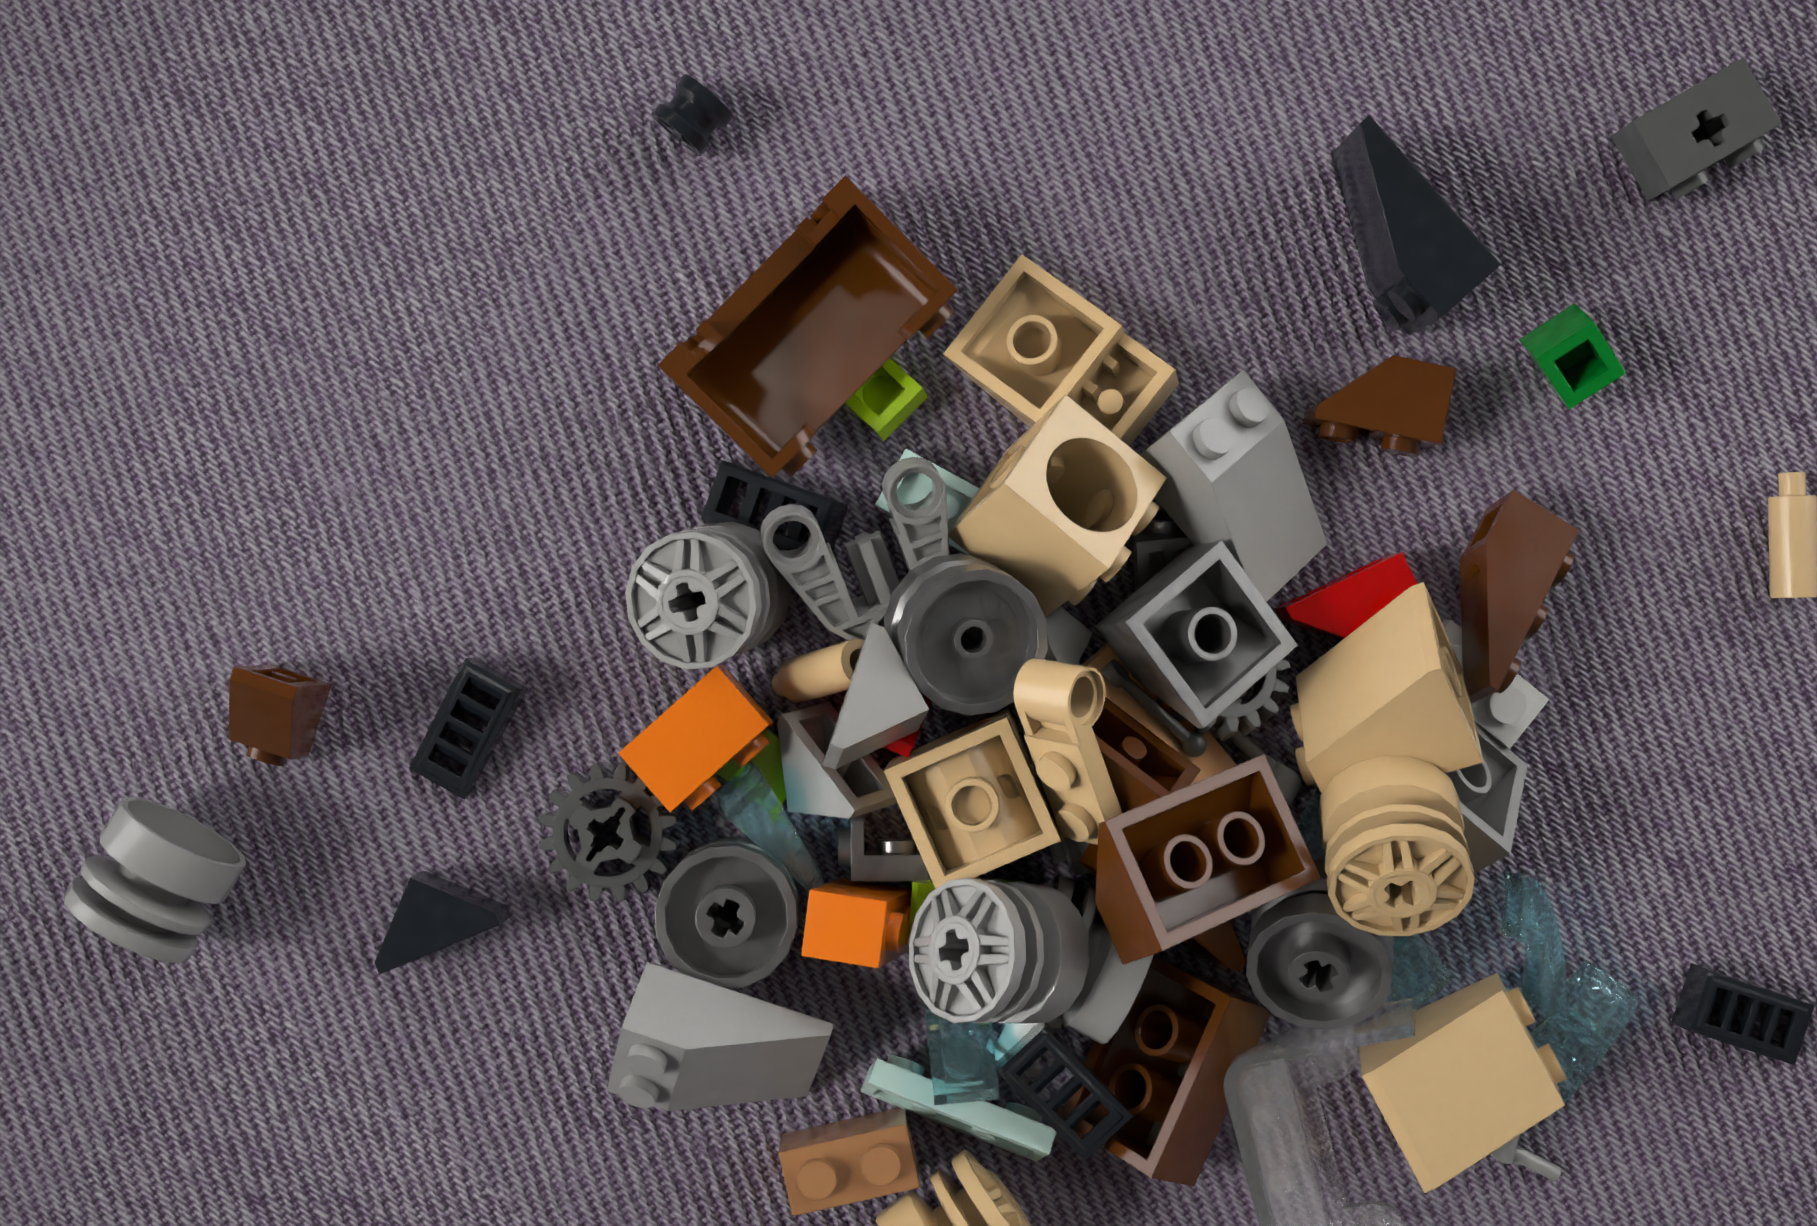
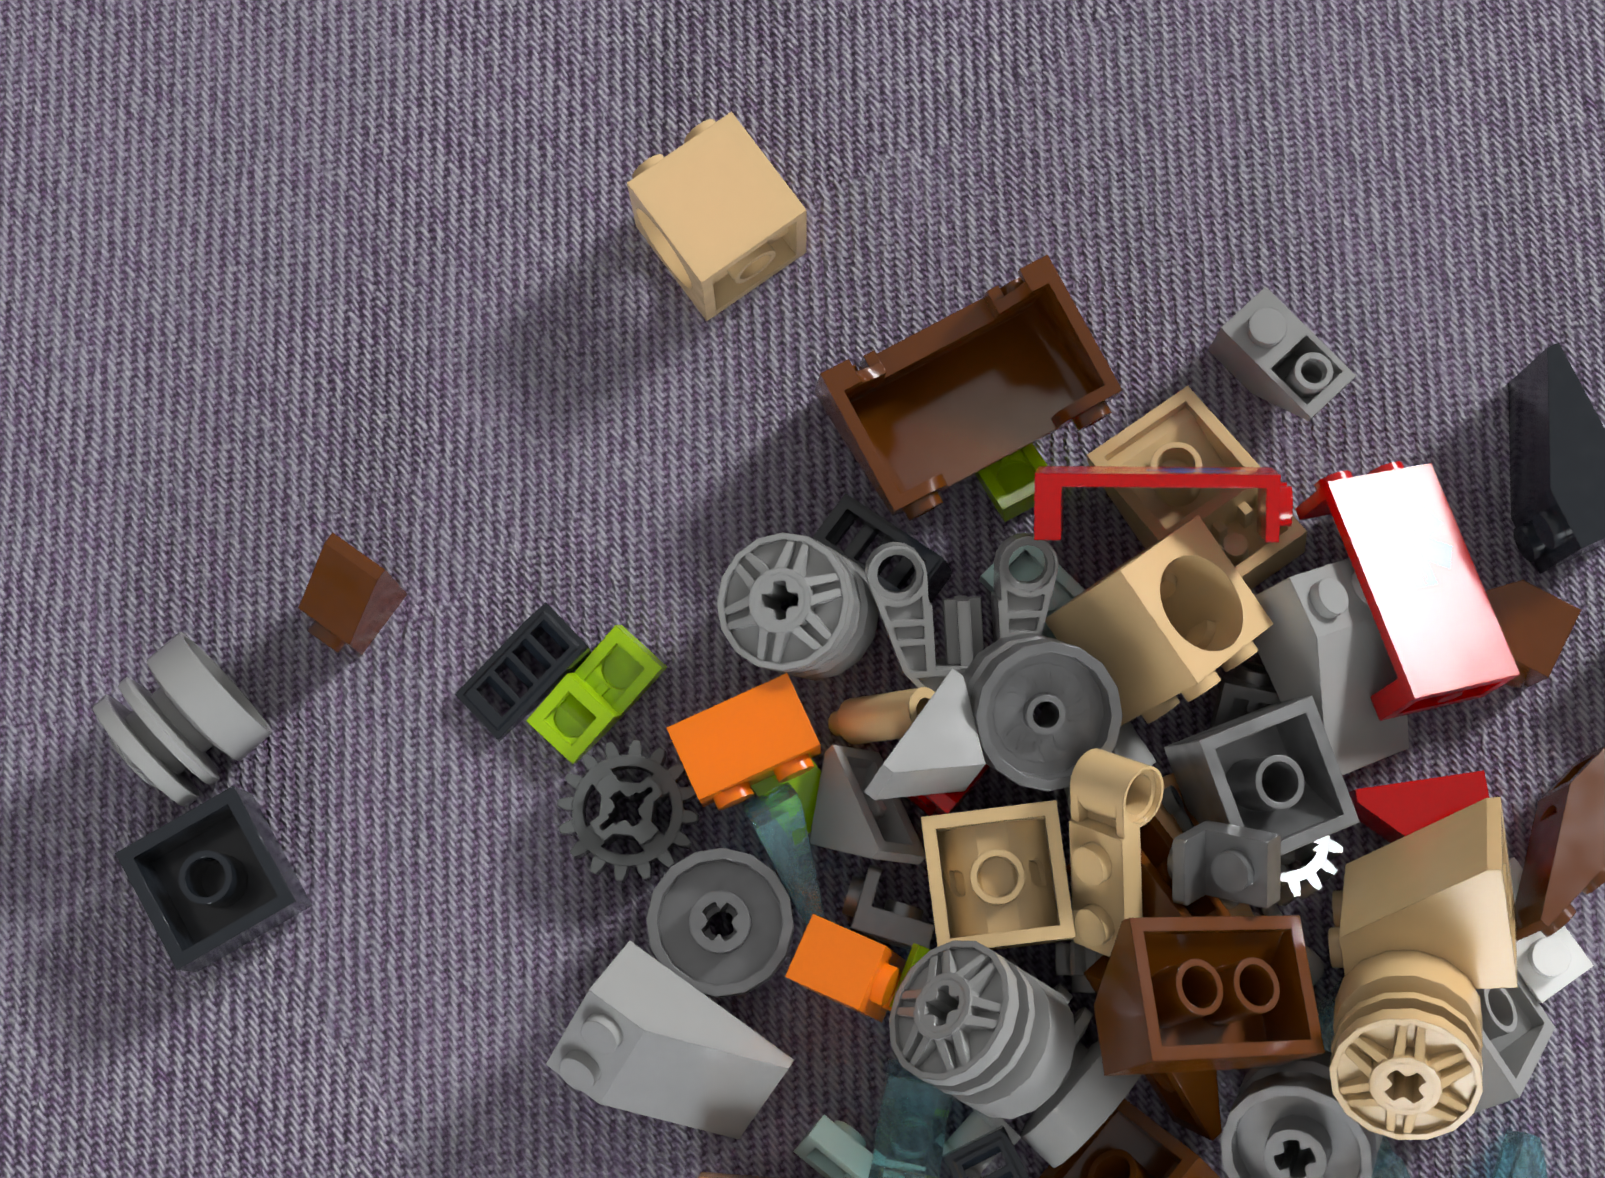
camera: 15 degrees right, 10 degrees down
(238, 1017) = (213, 879): none -> black brick
(434, 917) = (430, 844): black slope -> none
(508, 221) = (718, 214): none -> tan brick
(544, 727) = (596, 694): none -> lime slope
(692, 114) = (915, 172): black wheel -> none
(1018, 367) = (1273, 499): none -> red panel
(1105, 200) = (1280, 357): none -> light grey slope
(1182, 730) = (1225, 864): none -> flat silver bracket
(1291, 391) = (1416, 586): none -> panel

